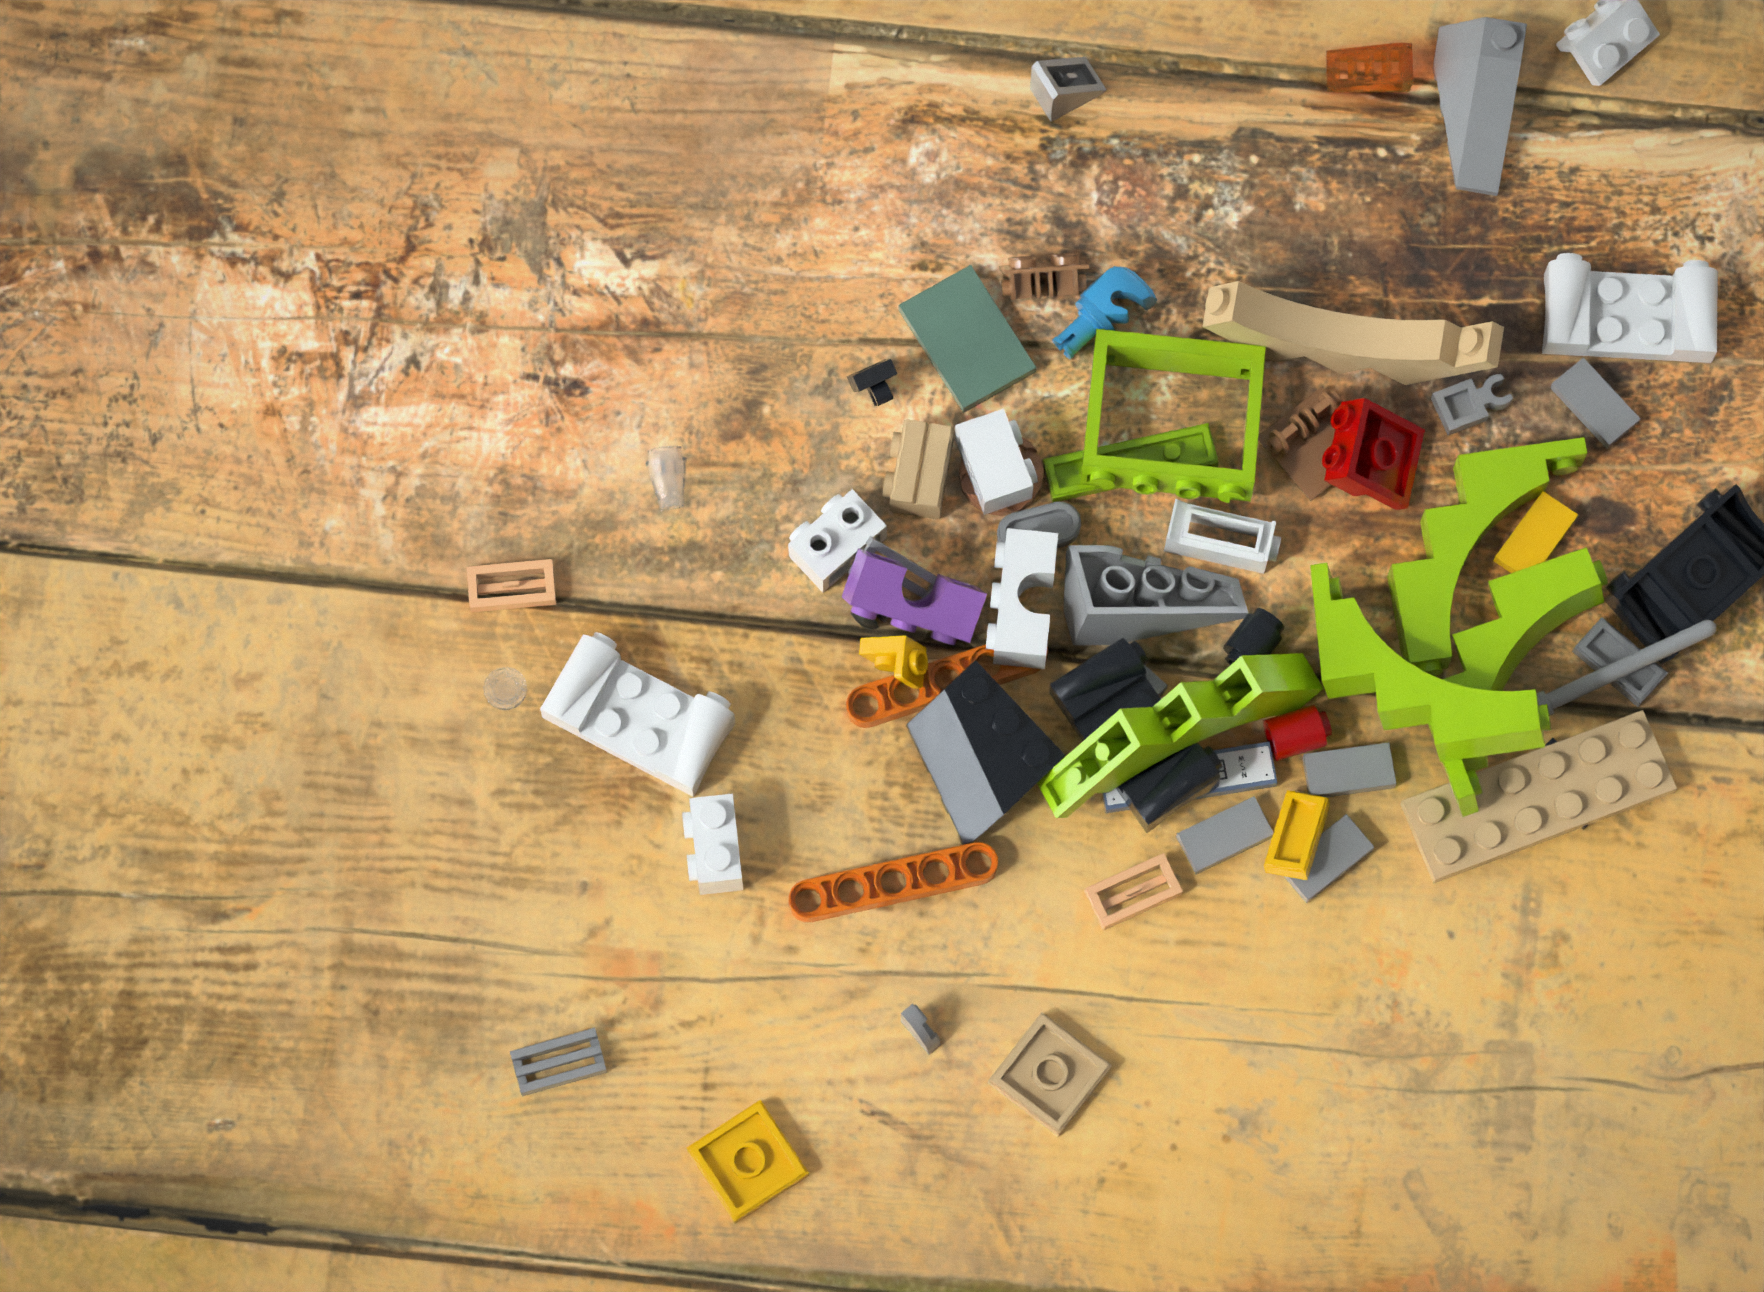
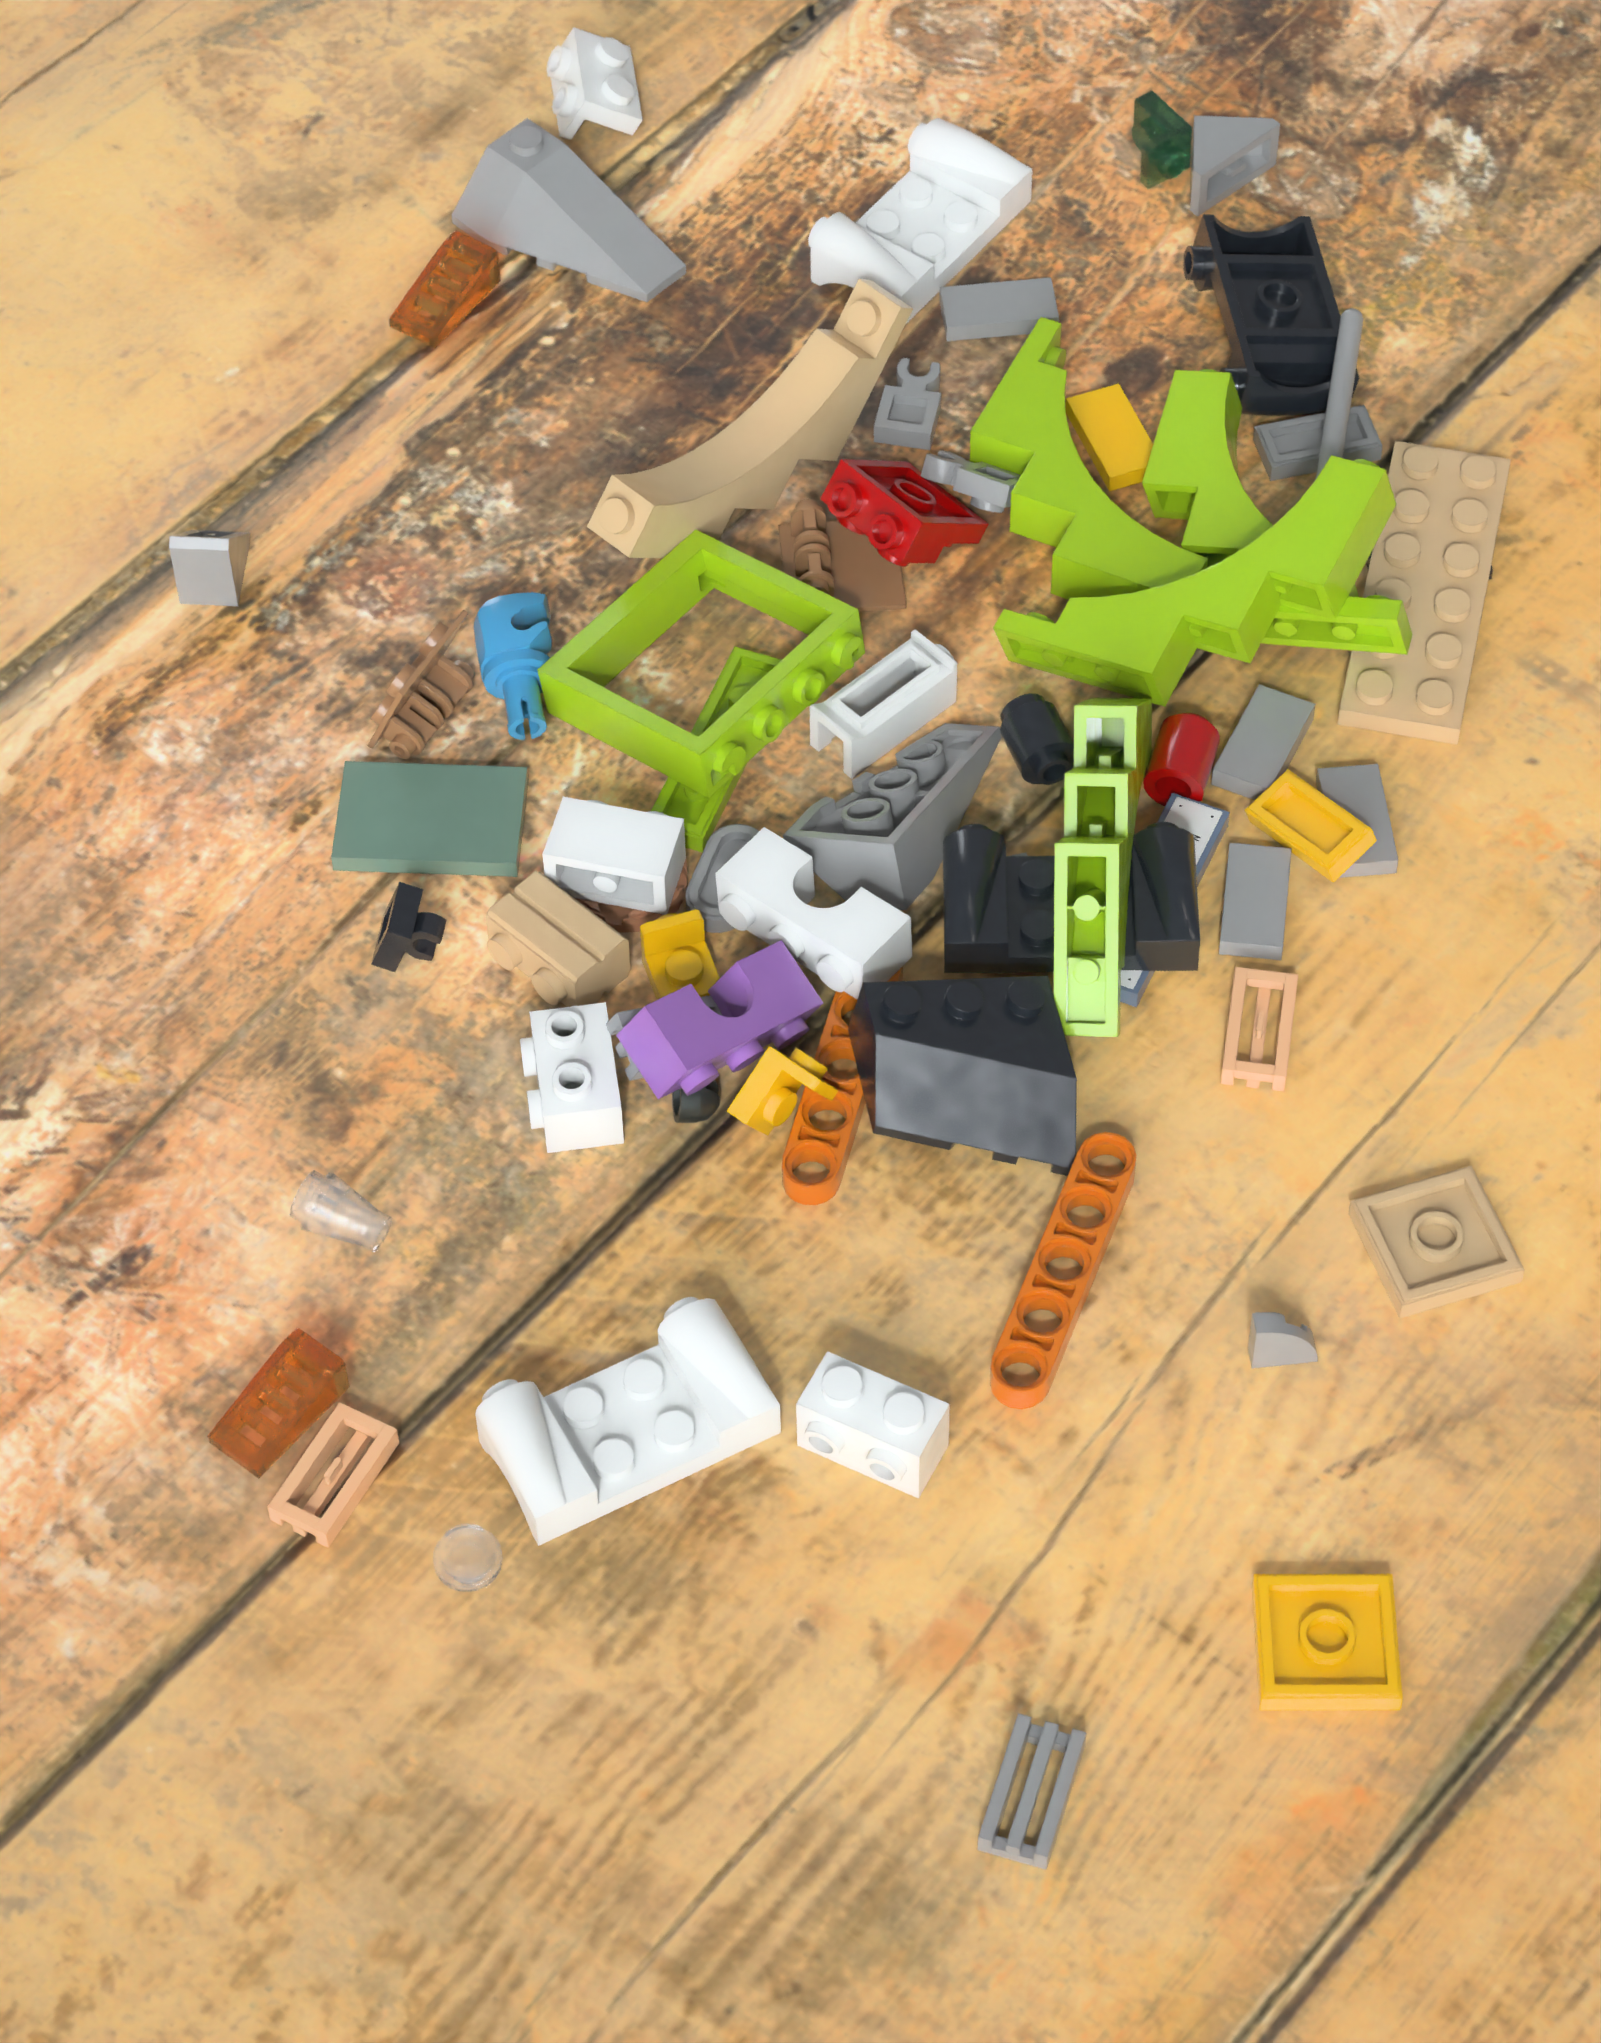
camera: 55 degrees left, 20 degrees down
(546, 545) = (282, 1369): none -> clear orange slope
(955, 545) = (677, 954): none -> yellow bracket
(1433, 482) = (986, 484): none -> light grey plate

